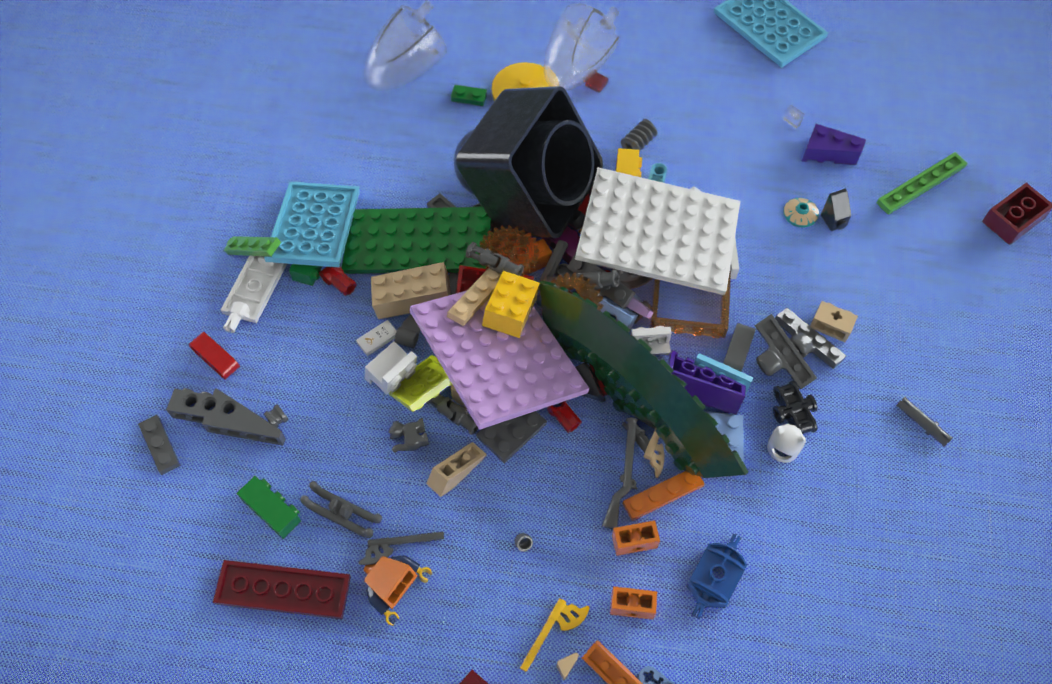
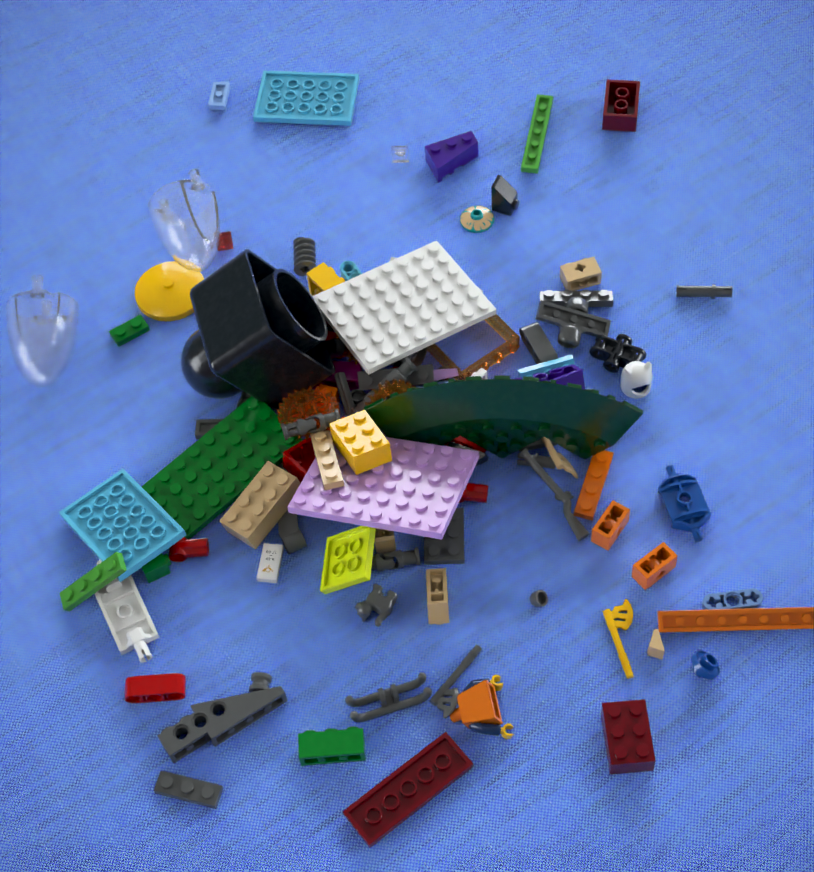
camera: 40 degrees left, 5 degrees down
(391, 368) = (315, 568): white bracket -> none

